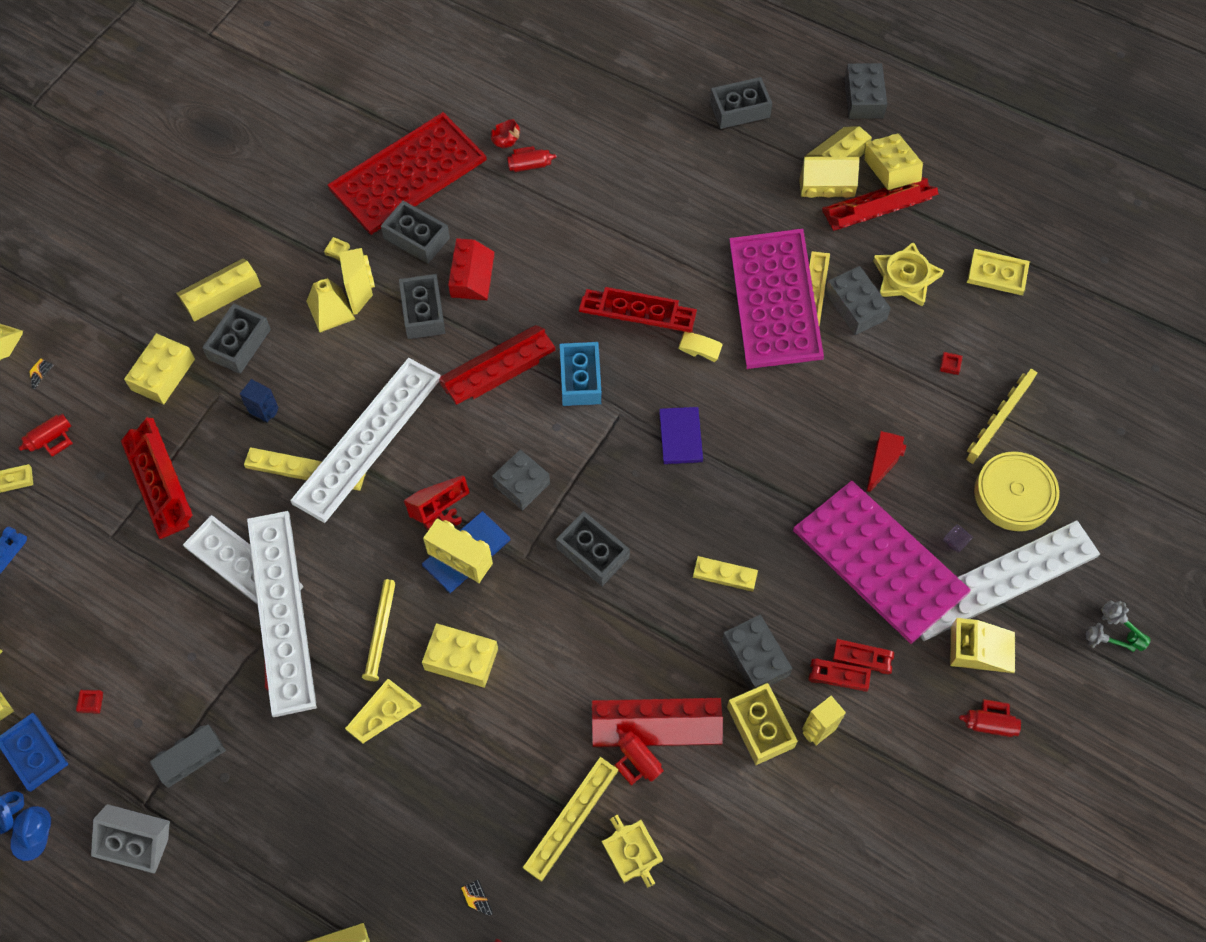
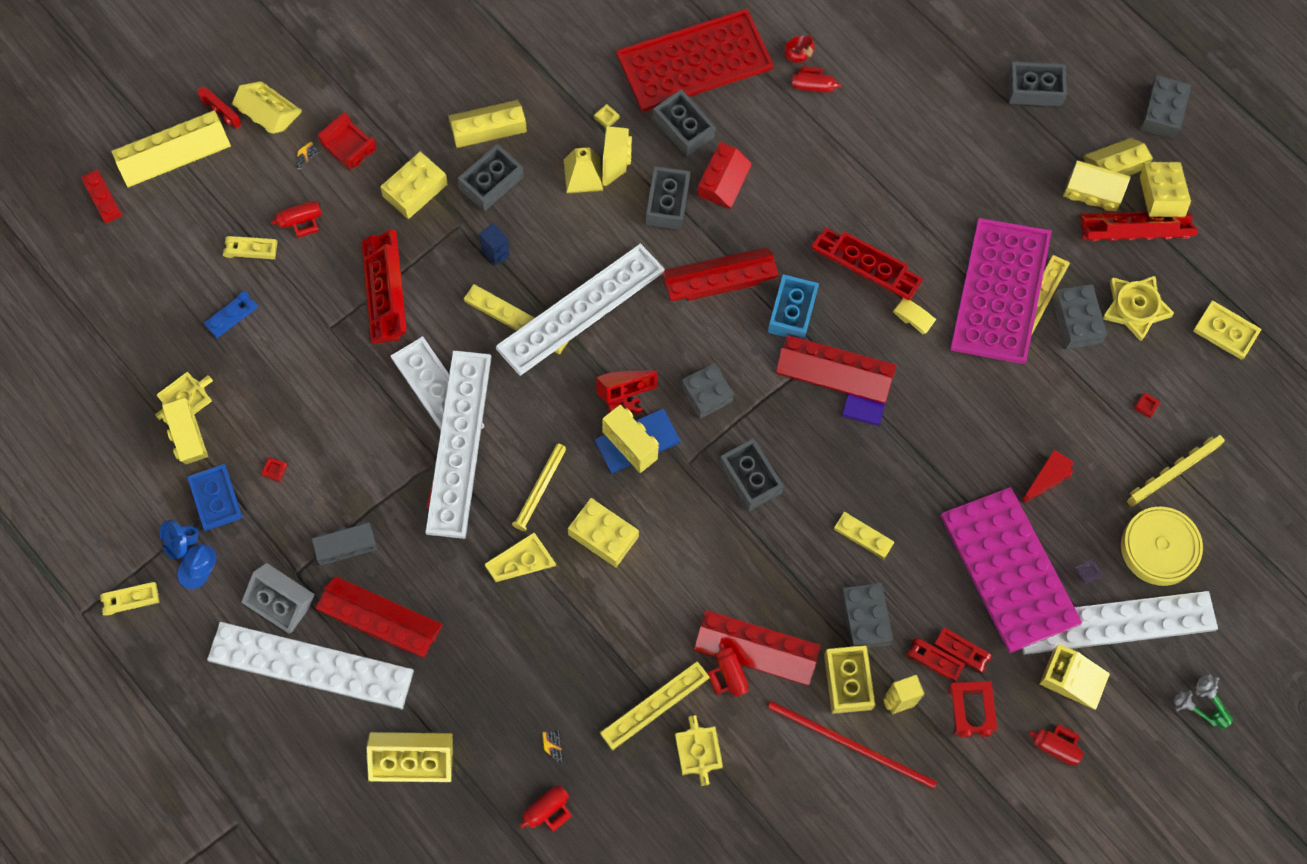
camera: 15 degrees right, 5 degrees up
(77, 347) = (346, 142): none -> red panel
(186, 900) = (310, 665): none -> white plate
(246, 822) = (378, 617): none -> red slope
(642, 419) = (836, 369): none -> red slope
(786, 790) = (852, 745): none -> red piece
(892, 734) = (962, 727): none -> red panel

